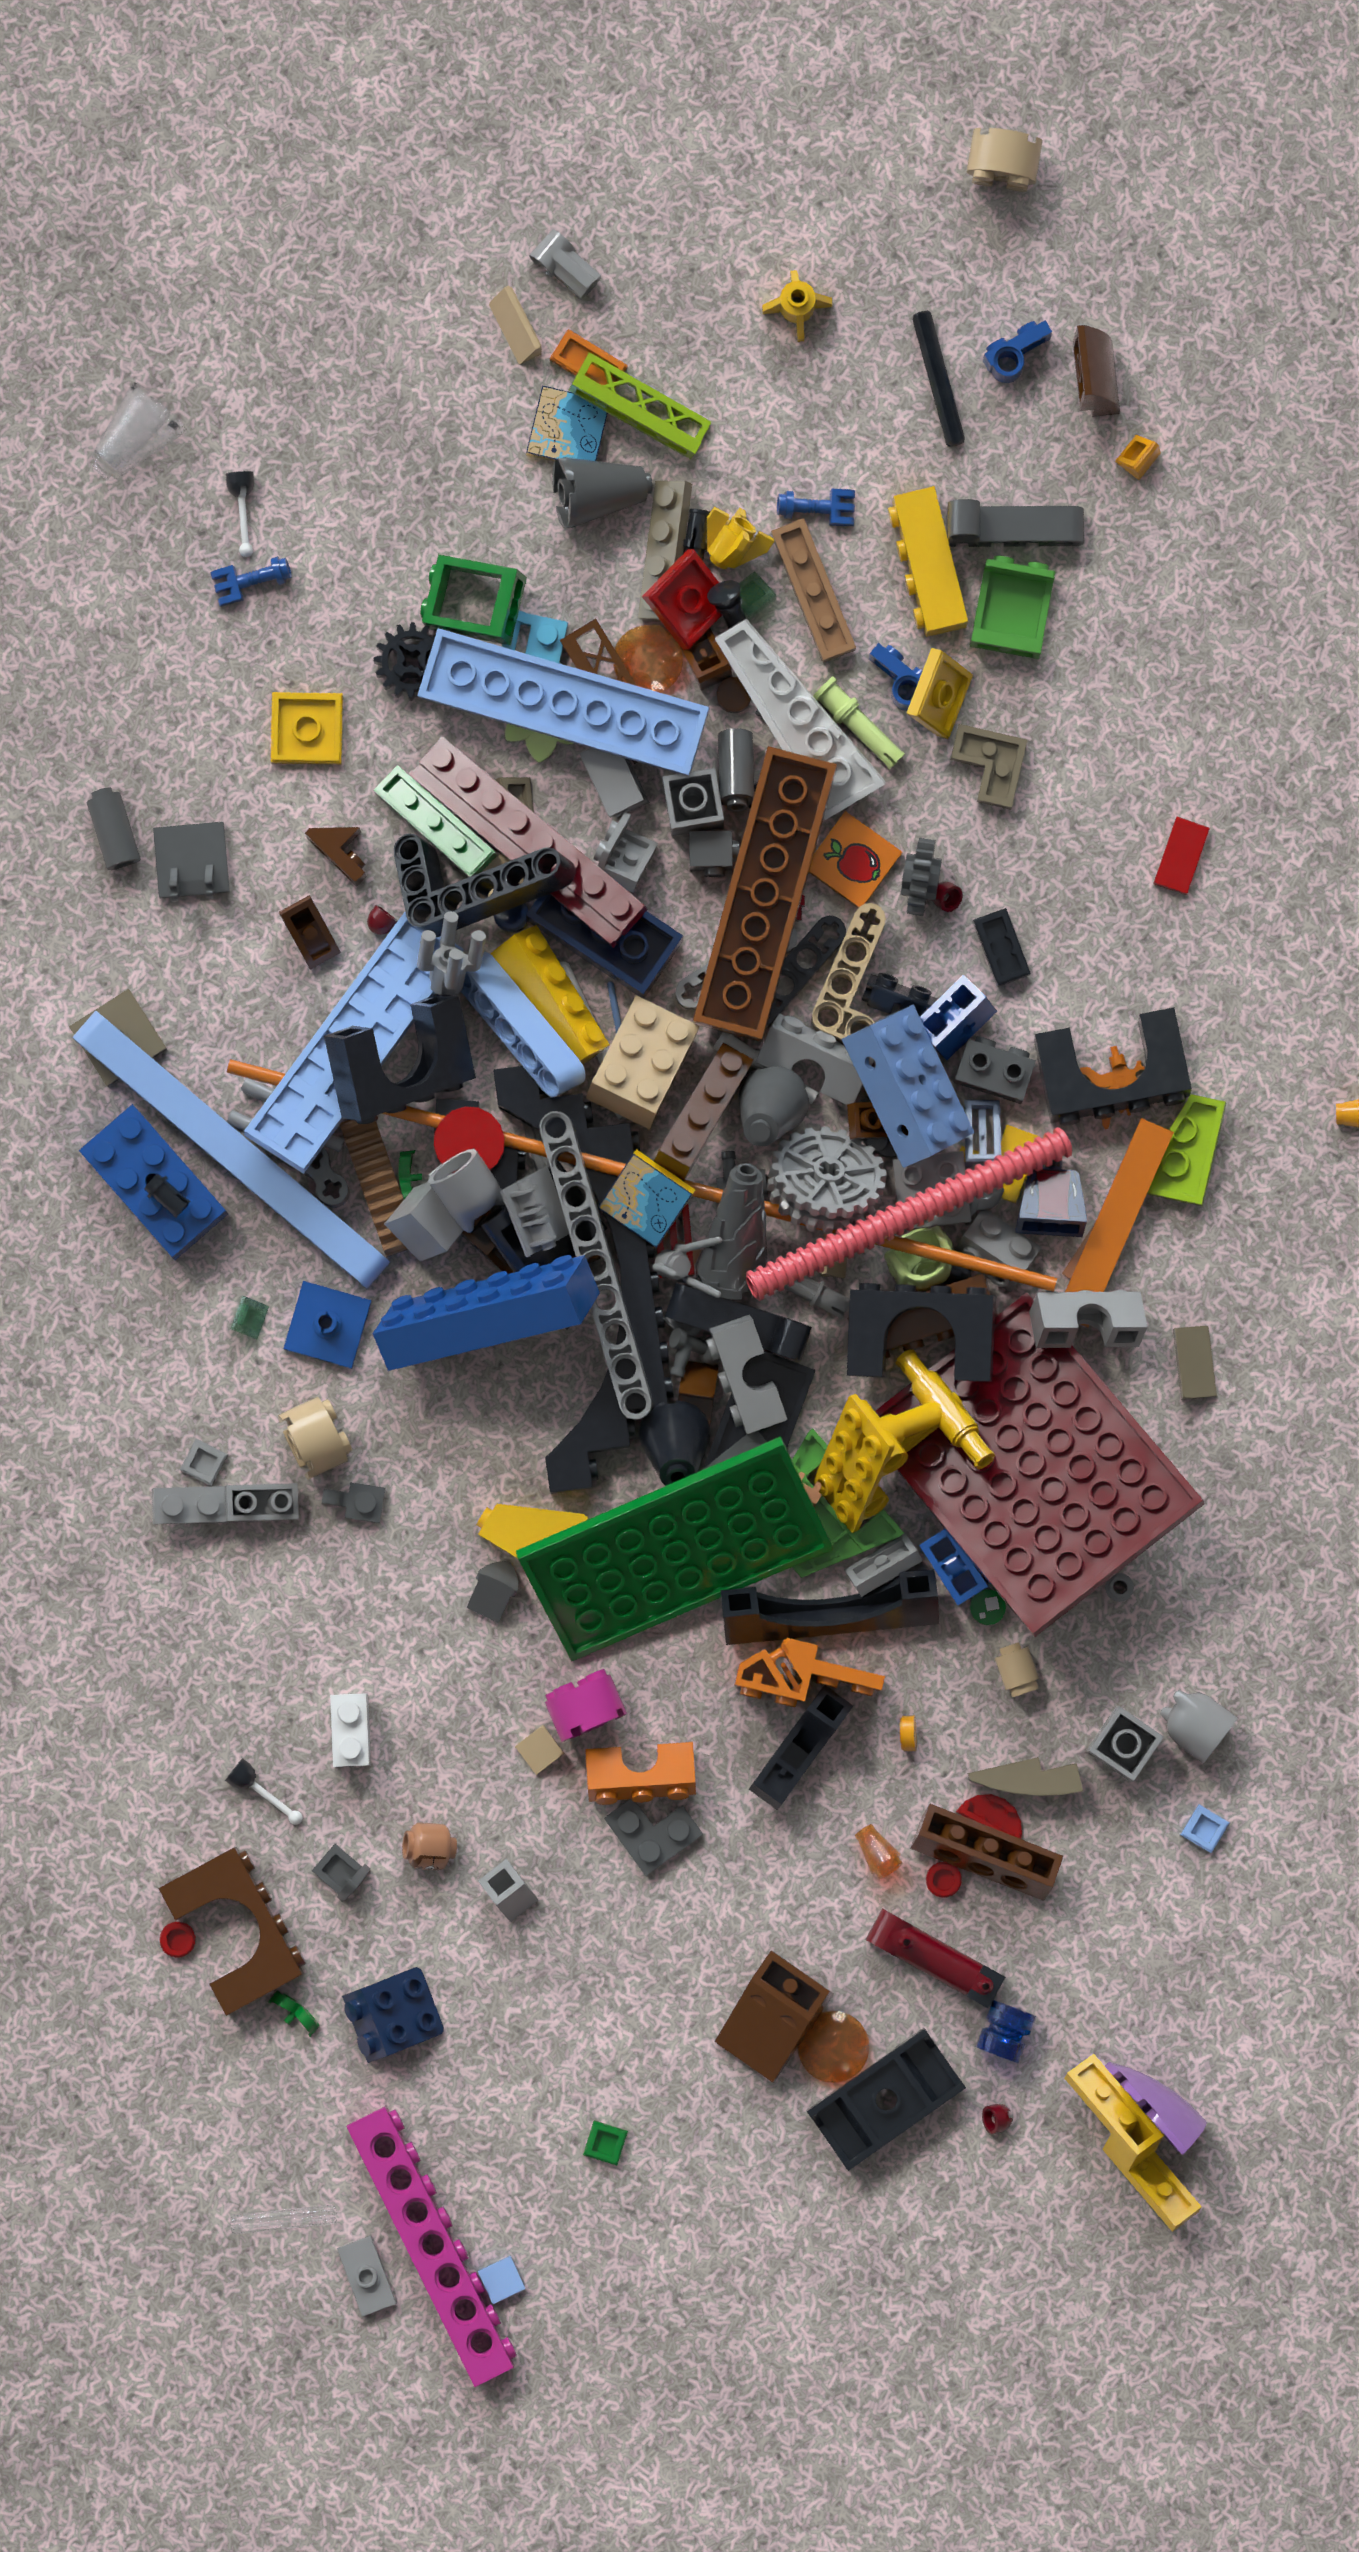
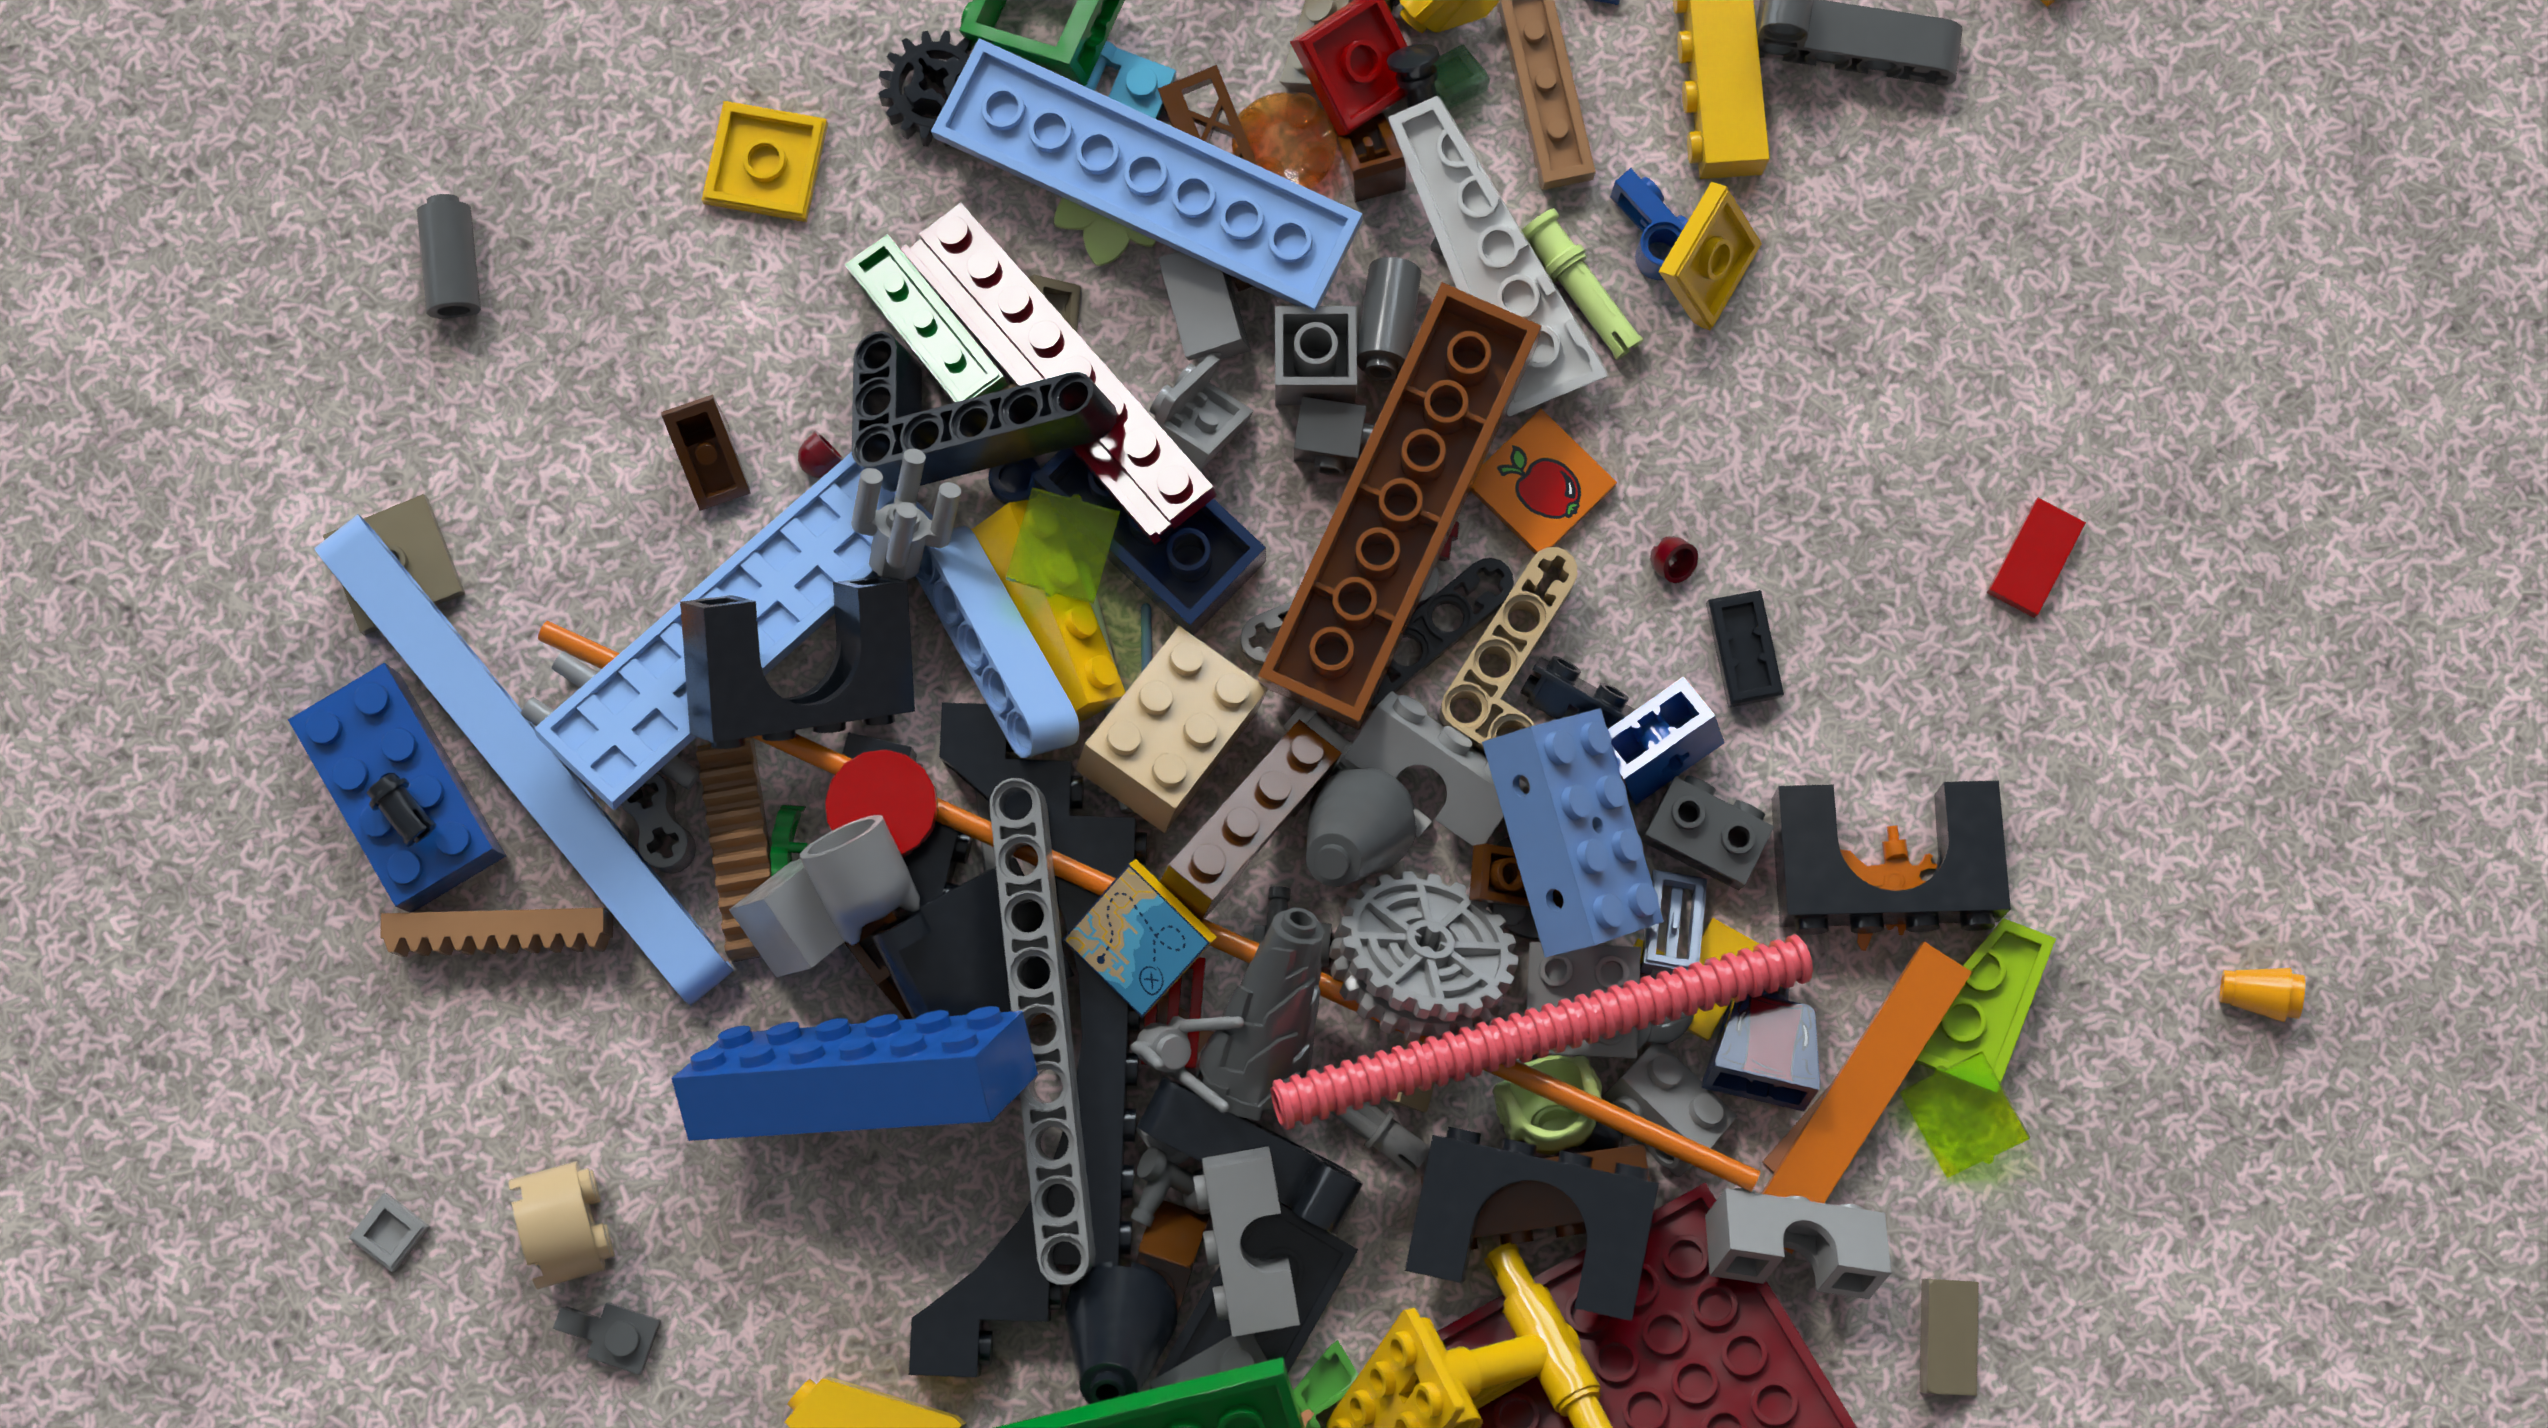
camera: 10 degrees right, 5 degrees down
(191, 860) = (556, 322): dark grey plate -> none
(225, 1504) = (402, 1304): light grey slope -> none
(236, 1258) = (503, 928): none -> medium nougat gear
(248, 1317) = (502, 1019): clear green slope -> none
(327, 1324) = (620, 1050): blue tile -> none
(332, 843) = (769, 331): reddish brown slope -> none
(536, 1211) = (960, 929): light grey hinge -> none
(553, 956) = (1062, 545): none -> clear neon green piece
(732, 695) = (1402, 215): reddish brown tile -> none
(921, 876) = (1641, 520): dark grey gear -> none
(998, 755) = (1782, 364): dark tan plate -> none
(1012, 607) = (1836, 154): bright green panel -> none
(1183, 1222) = (1964, 1114): none -> clear neon green piece

